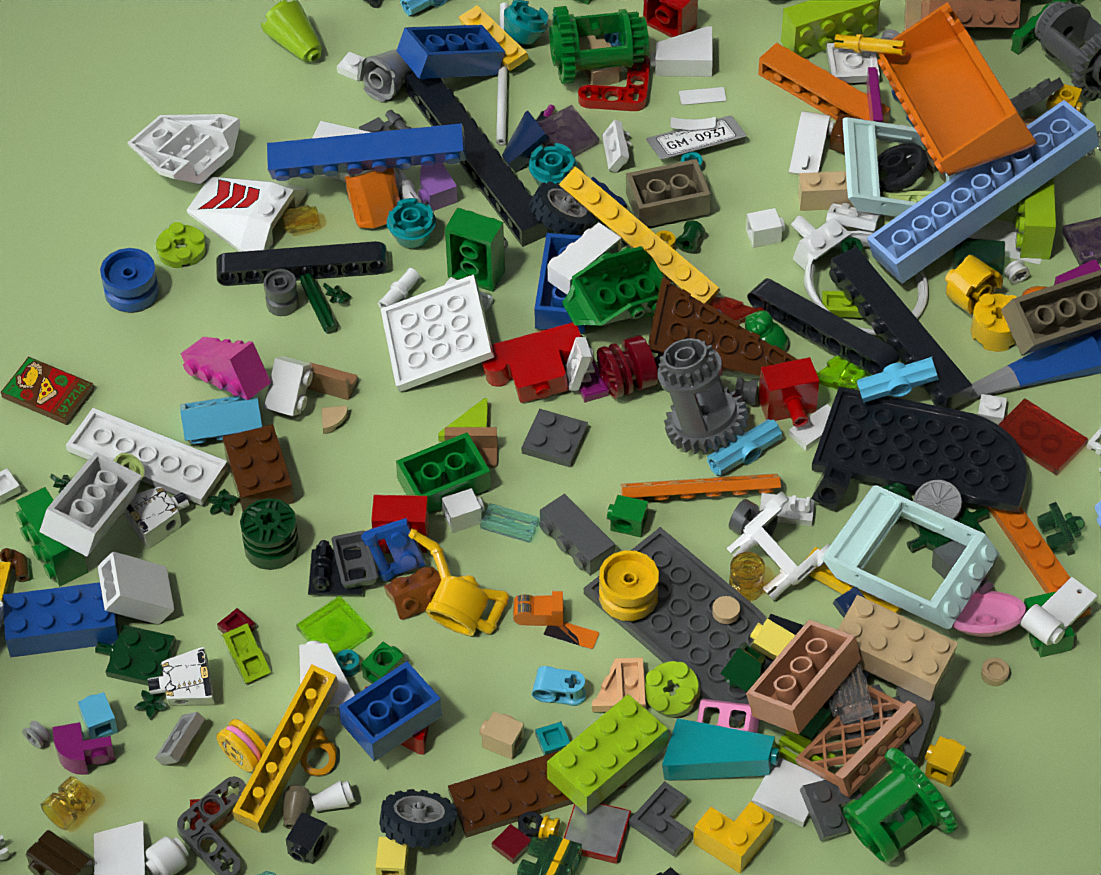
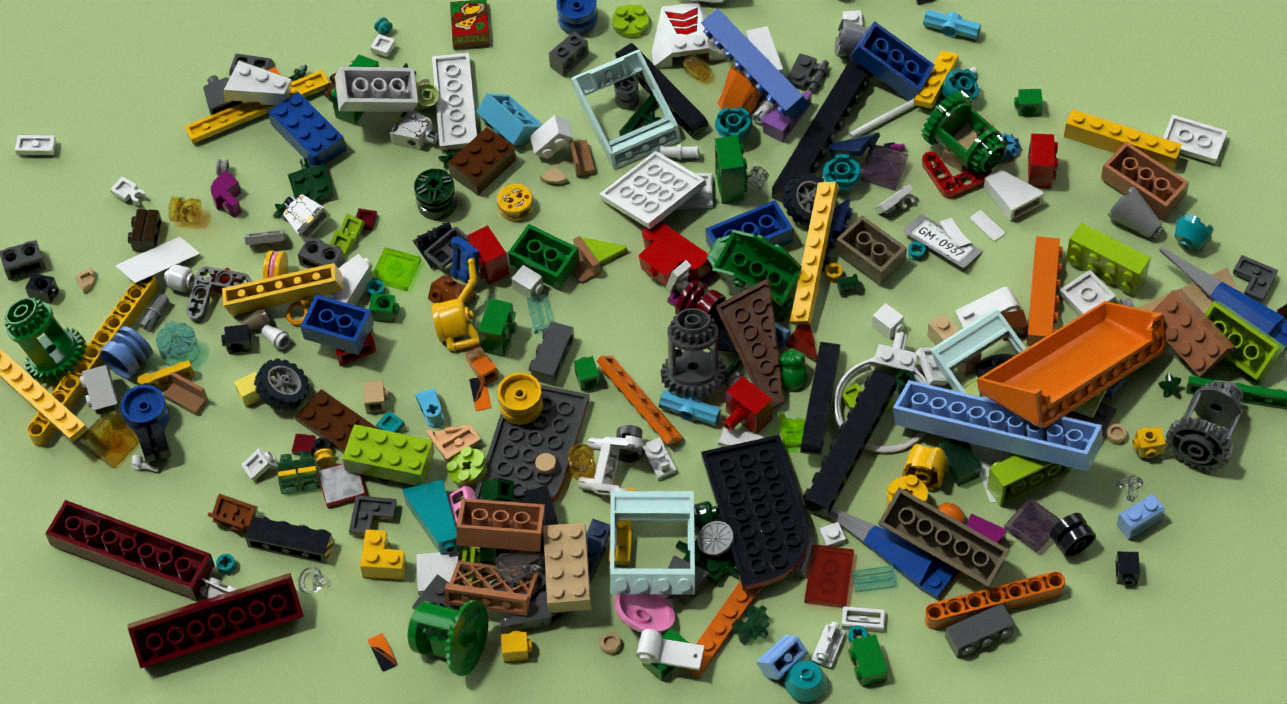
camera: 60 degrees right, 5 degrees up
(97, 716) = (253, 189): medium azure brick -> none
(135, 588) = (346, 151): white brick -> none
(179, 318) = (568, 53): none -> dark grey brick
(227, 365) = (537, 96): dark pink wedge -> none
(261, 698) = (324, 252): none -> dark grey brick
(340, 468) = (515, 202): none -> yellow head
(358, 309) = (640, 141): none -> light aqua window
(507, 562) = (497, 327): none -> green brick
(554, 437) = (624, 301): dark grey plate -> none
(581, 254) = (774, 229): white brick -> none
(770, 638) = (521, 491): light yellow brick -> none
(831, 486) = (688, 471): black brick -> none
(860, 43) = (1098, 287): yellow pin -> none
(873, 95) = (1043, 321): magenta tile -> none
(897, 379) = (797, 461): medium azure piece -> none
(1005, 57) = (1170, 384): none -> dark green plant
(1016, 272) = (965, 490): white bush -> none
(1036, 94) = (1133, 416): dark grey plate -> none
(1075, 385) = (873, 582): none -> clear light blue tile

